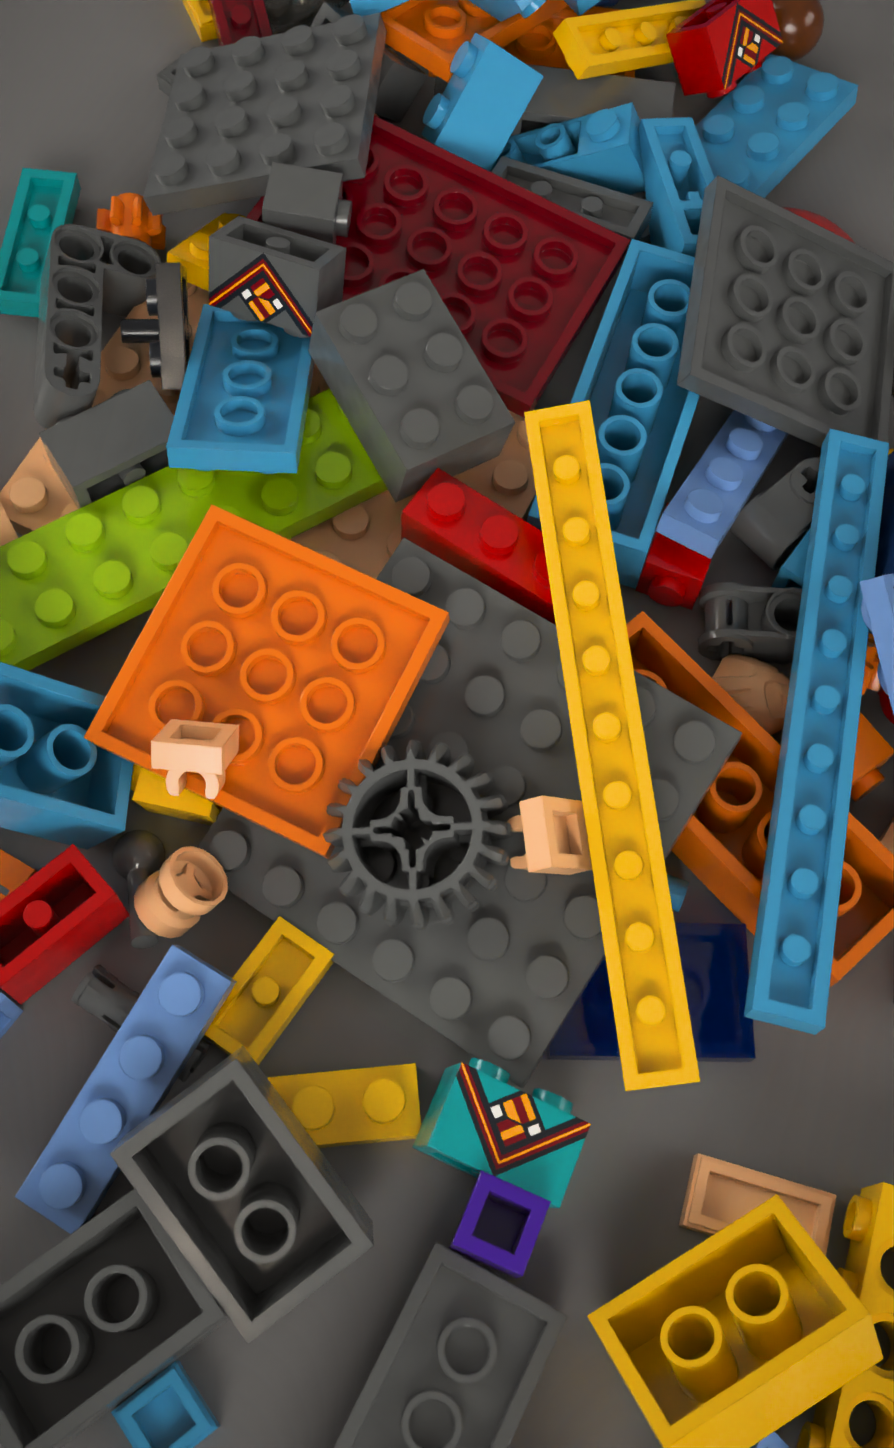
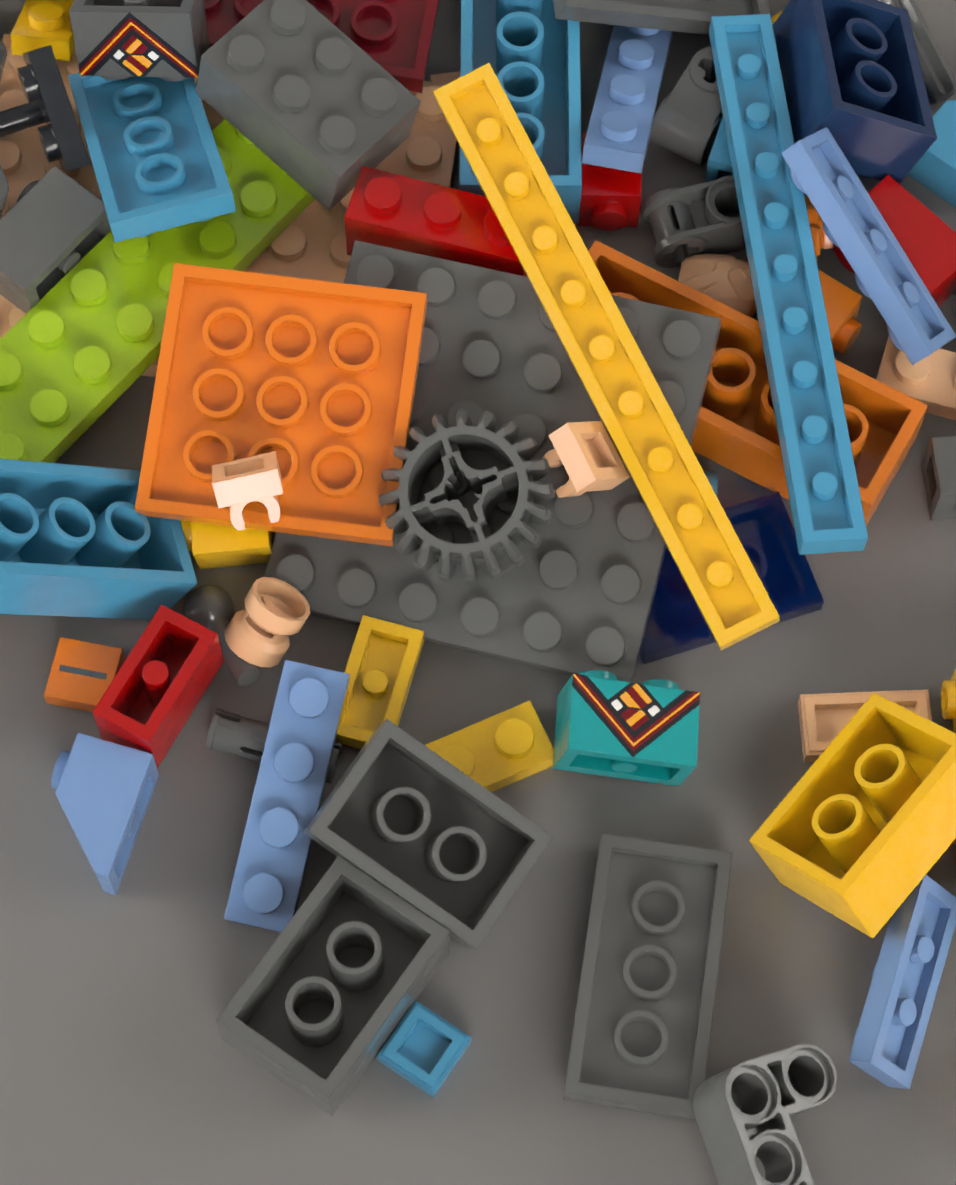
camera: 15 degrees left, 0 degrees up
(500, 1225) = (651, 797): dark purple brick -> none

